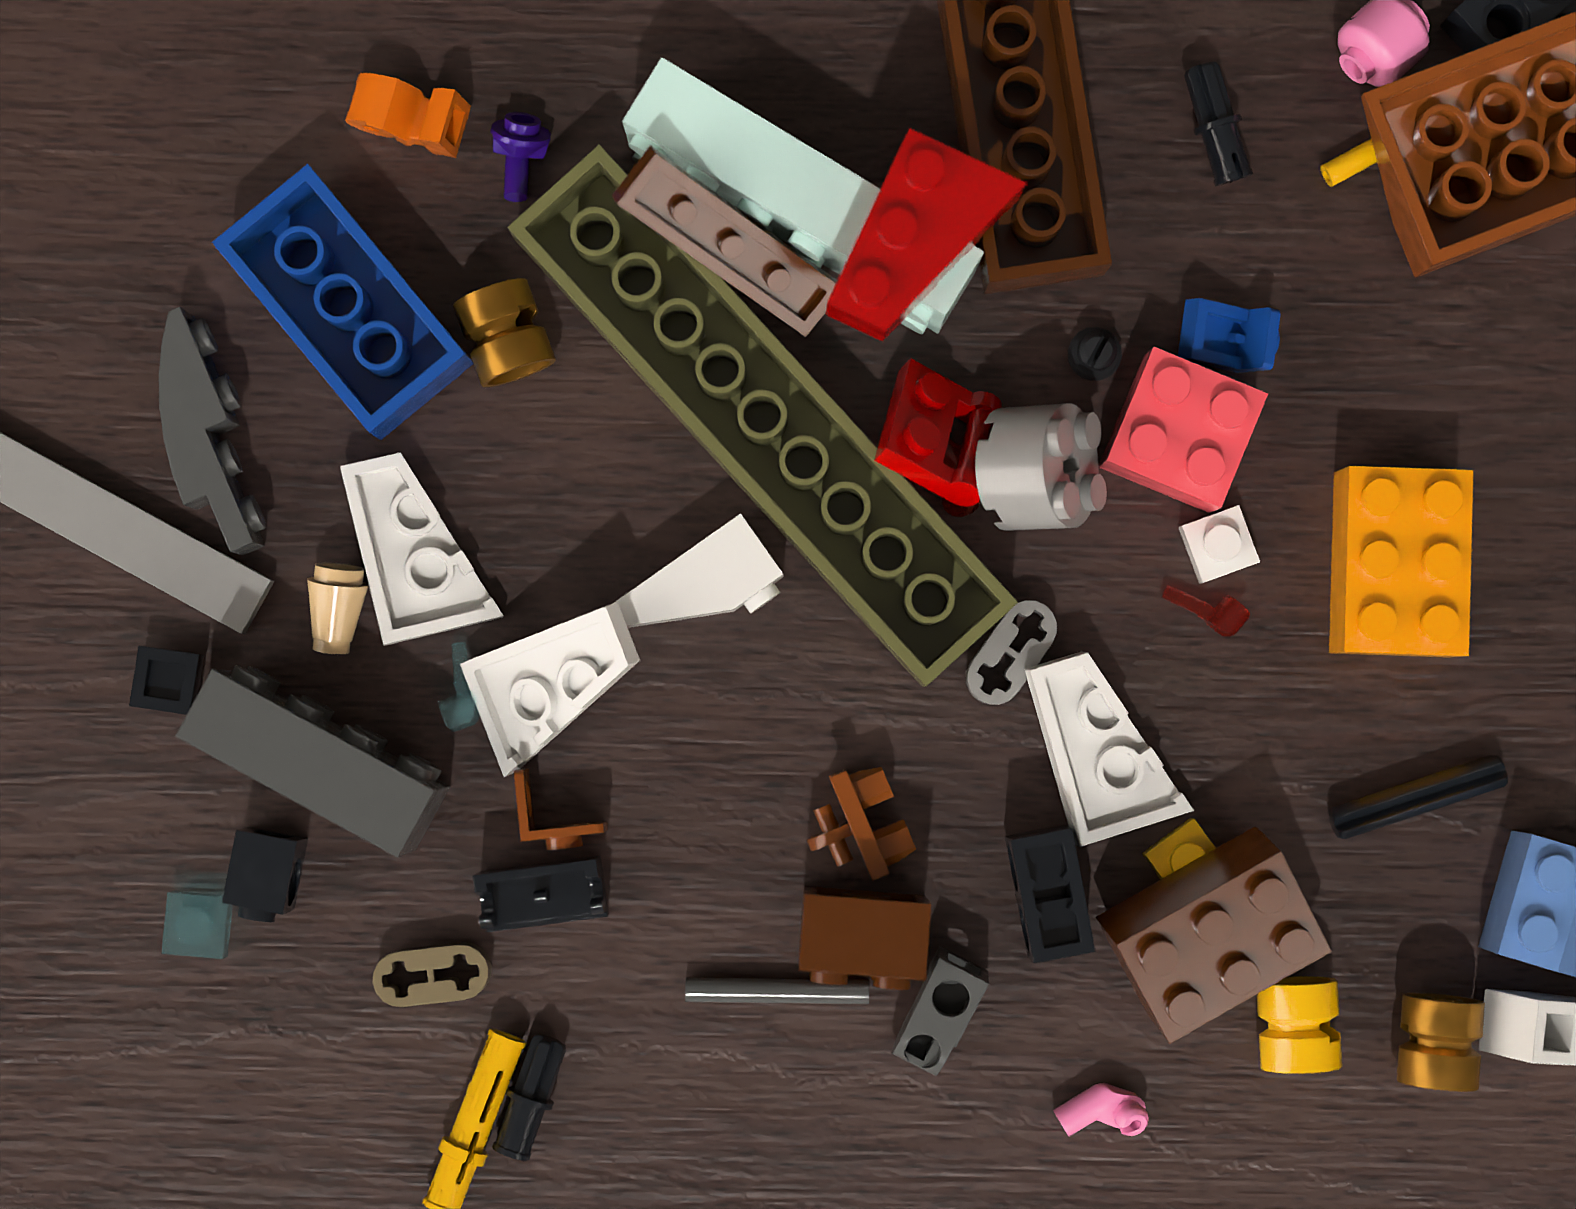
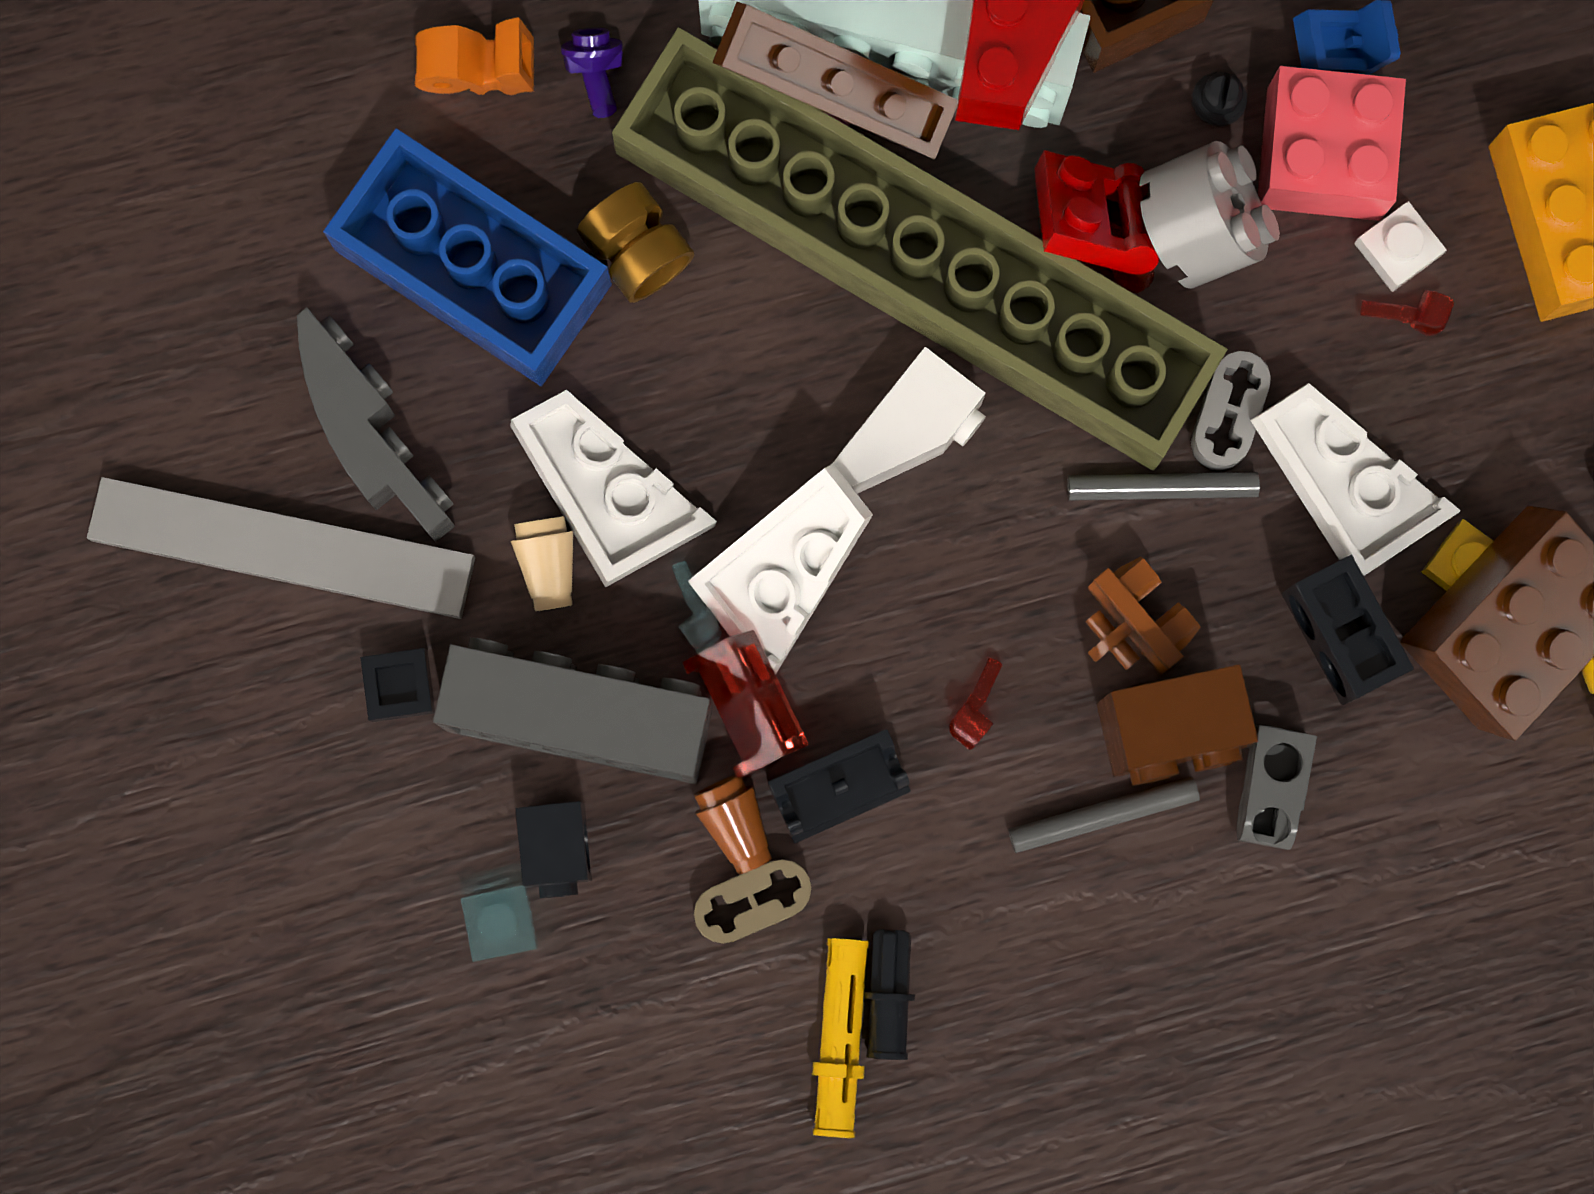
camera: 20 degrees left, 5 degrees down
(436, 897) = (734, 822): none -> dark orange cone
(482, 794) = (749, 701): none -> clear red hinge
(556, 836) = (836, 723): dark orange bracket -> none
(678, 870) = (969, 724): none -> clear red hand
(927, 704) = (1163, 486): none -> dark grey piece
(1107, 1105) = (1467, 830): bright pink arm -> none

